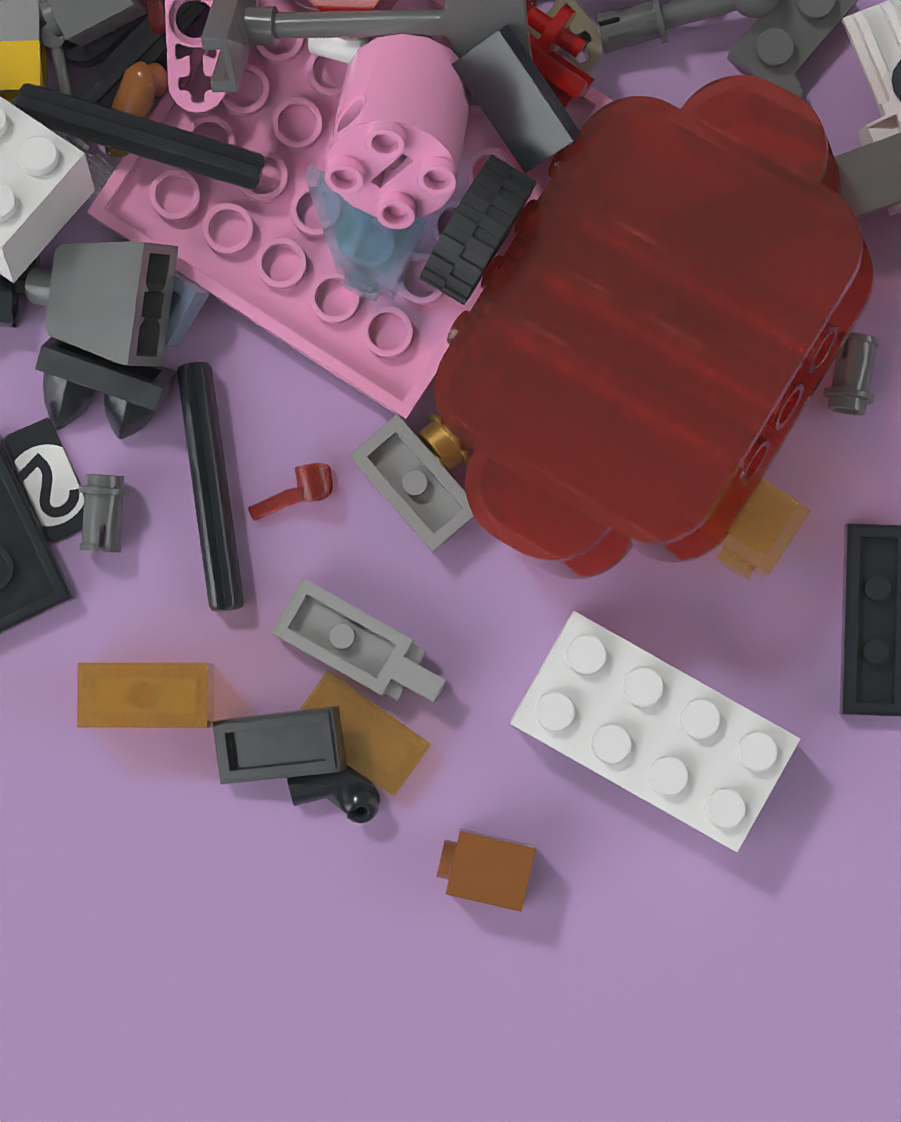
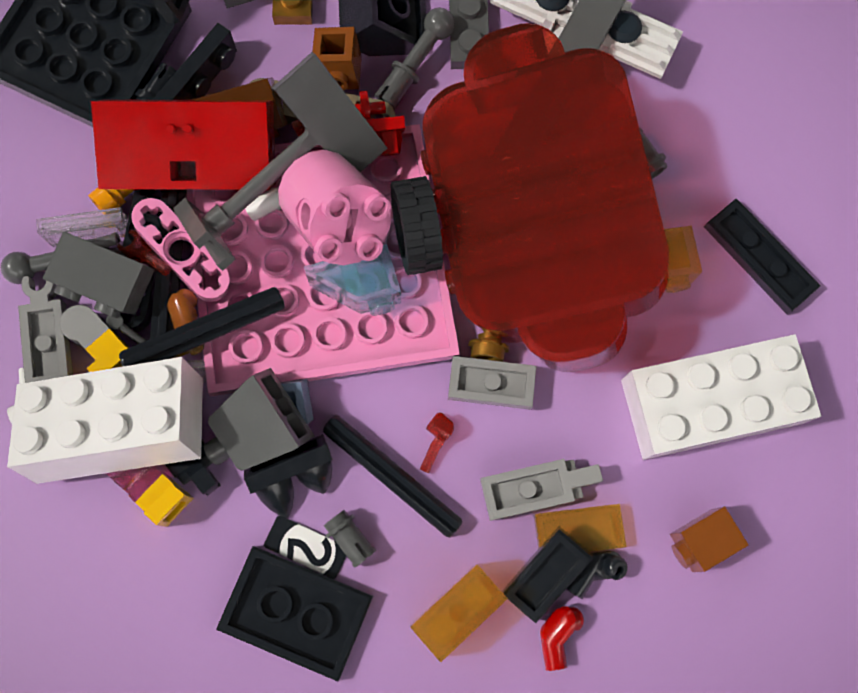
camera: 50 degrees left, 10 degrees down
(232, 814) = (556, 632): none -> red arm
(516, 99) = (379, 144): black tile -> none

